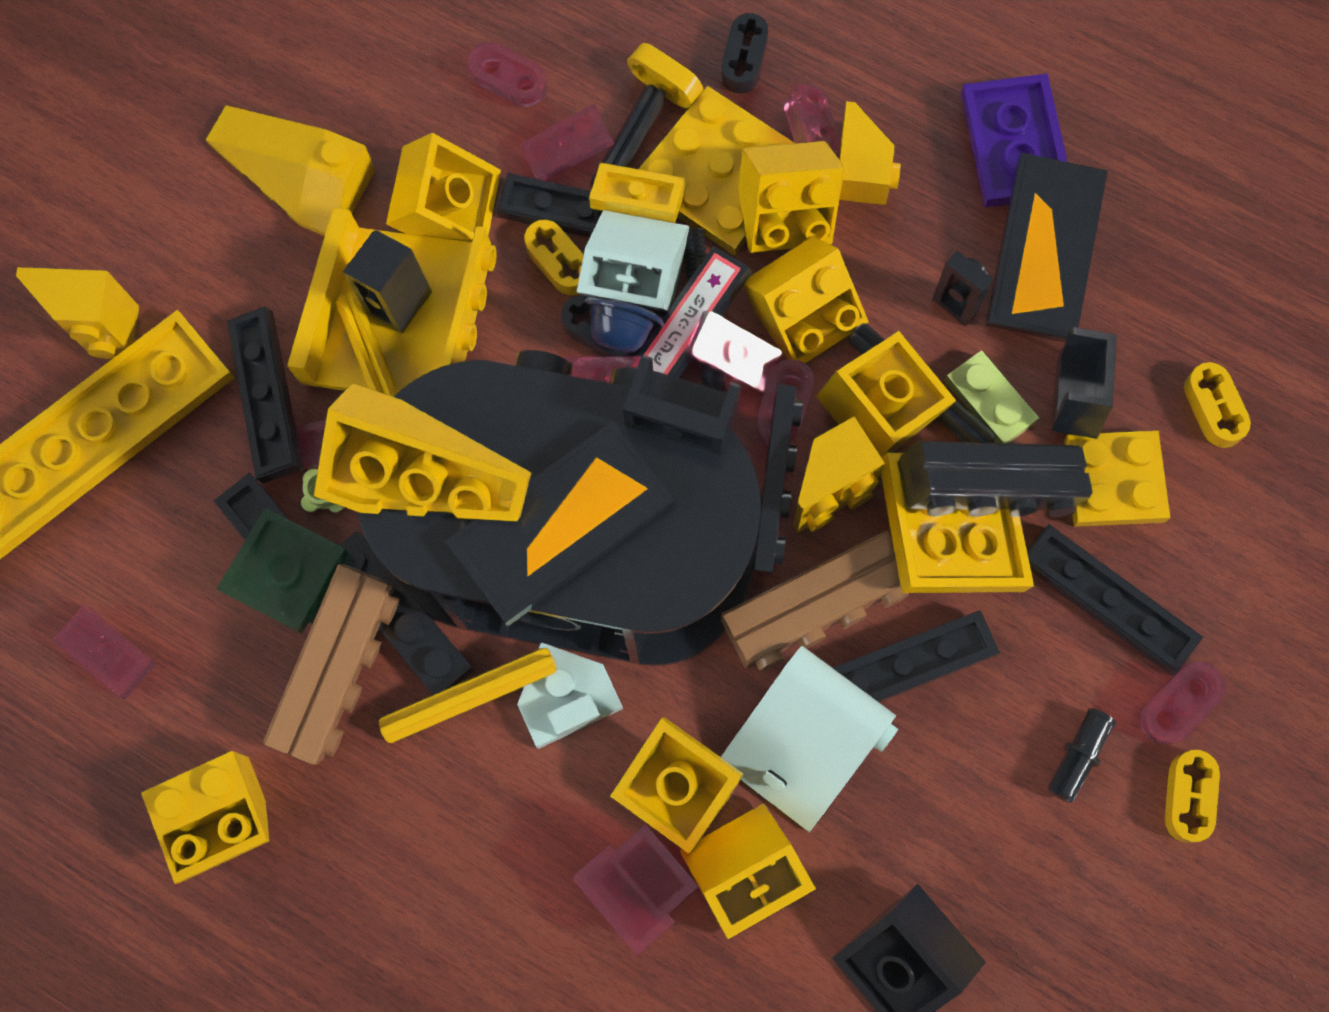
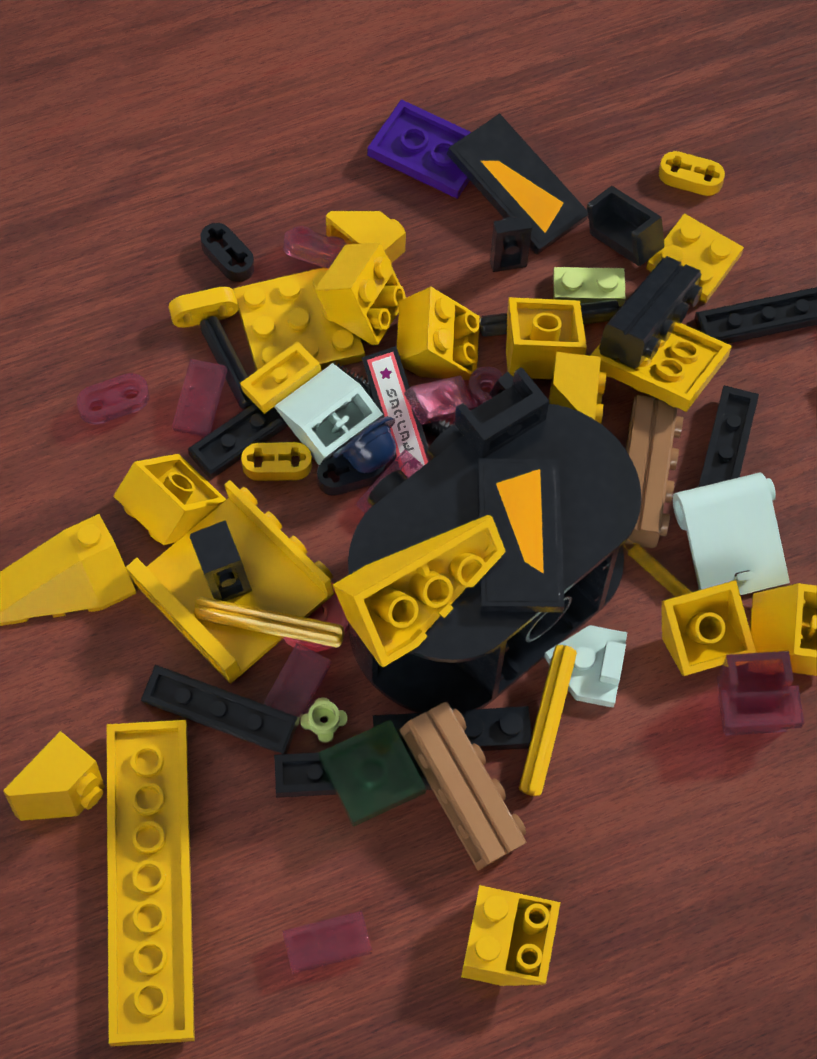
camera: 60 degrees left, 10 degrees down
(712, 715) = (673, 580): none -> yellow piece

